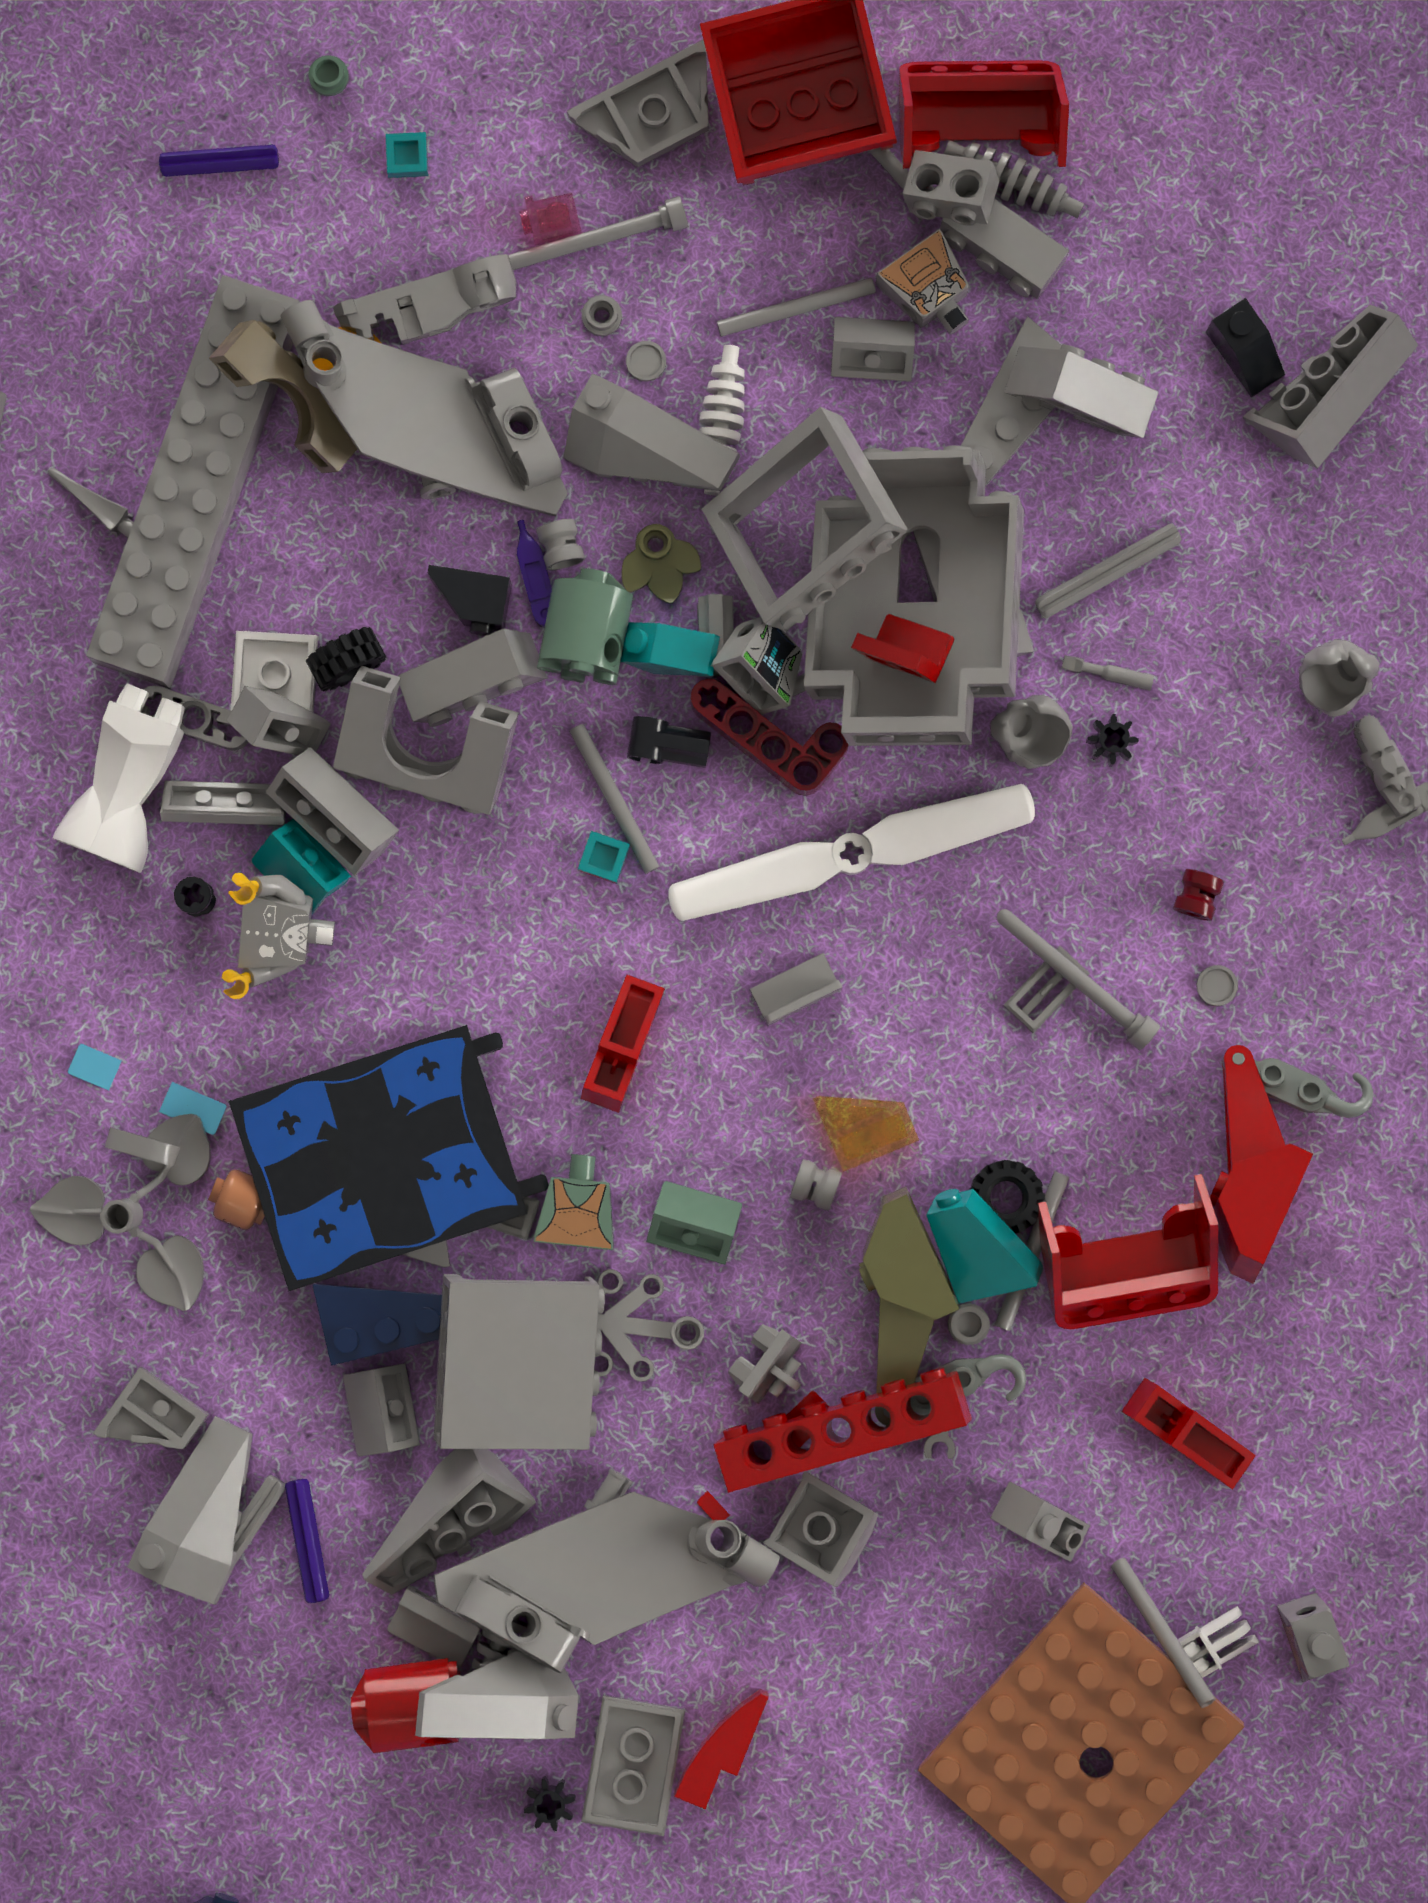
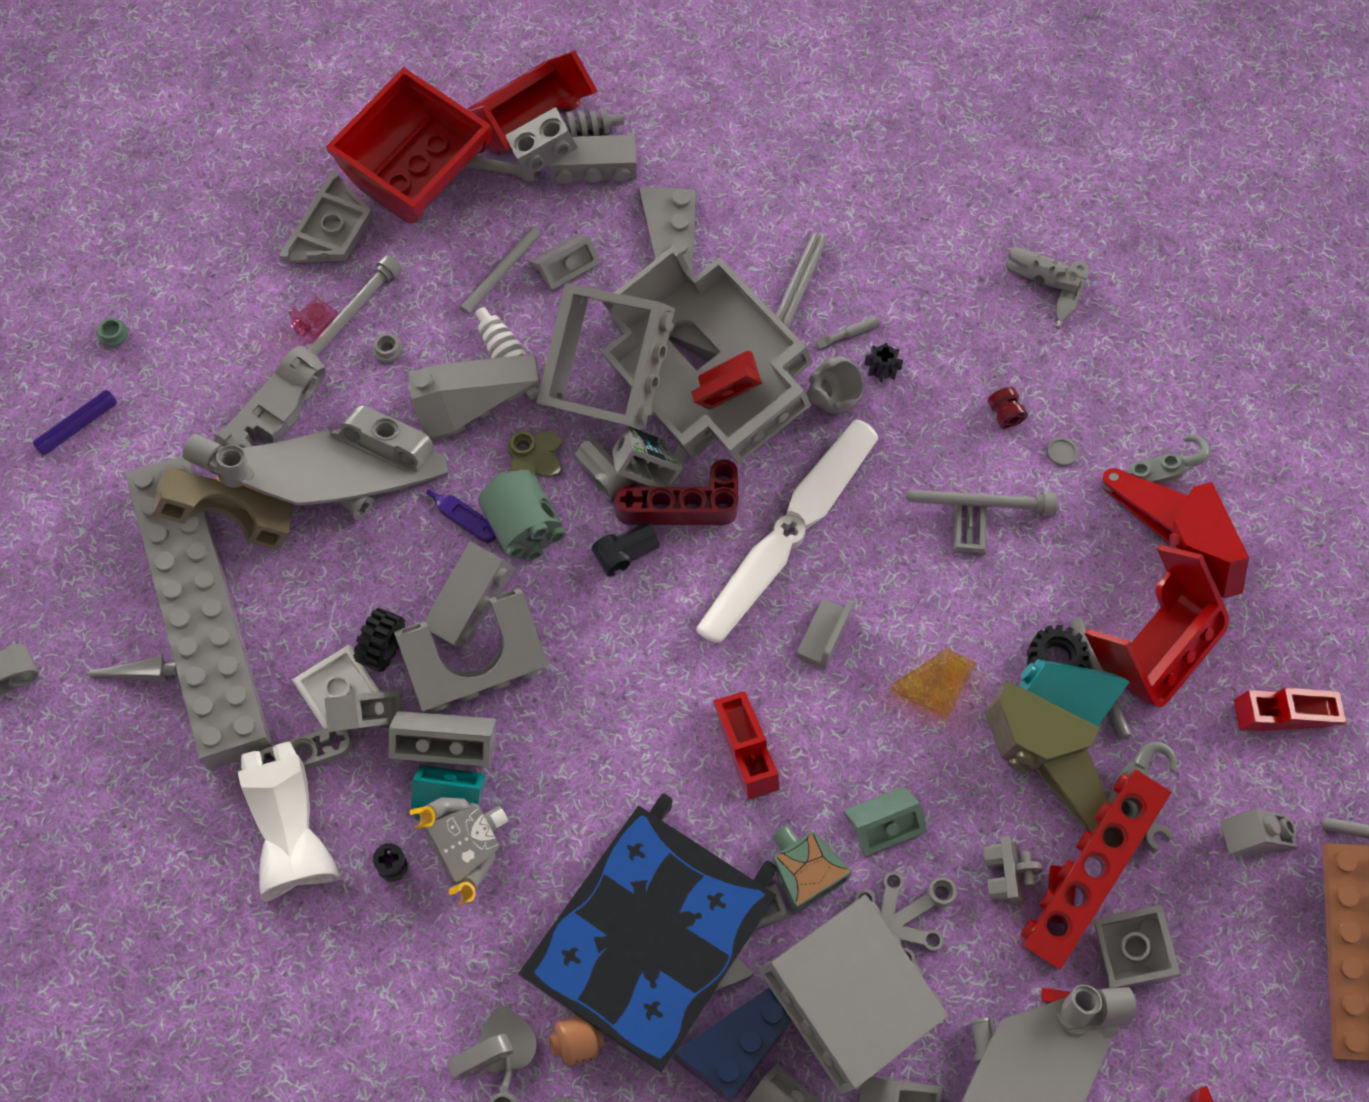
camera: 40 degrees left, 20 degrees down
(101, 1070) = (410, 1030): medium azure sticker -> none
(219, 803) = (363, 791): light grey tile -> none
(407, 155) = (196, 341): teal plate -> none
(475, 597) = (431, 550): black slope -> none
(560, 544) = (463, 483): light grey wheel -> none
(603, 857) = (640, 642): teal plate -> none
(614, 798) = (618, 606): light grey bar -> none
(646, 361) = (434, 354): light grey piece -> none
(669, 649) = (583, 489): teal slope -> none
(825, 1186) = (939, 736): light grey wheel -> none
(927, 283) = (568, 206): torso -> none
(968, 1324) = (1105, 750): light grey tile -> none
(1083, 388) = (703, 191): wedge -> none
(1246, 347) = (772, 122): black slope -> none
(1335, 387) = (839, 110): light grey wedge -> none
(1337, 676) = (975, 241): light grey hair -> none

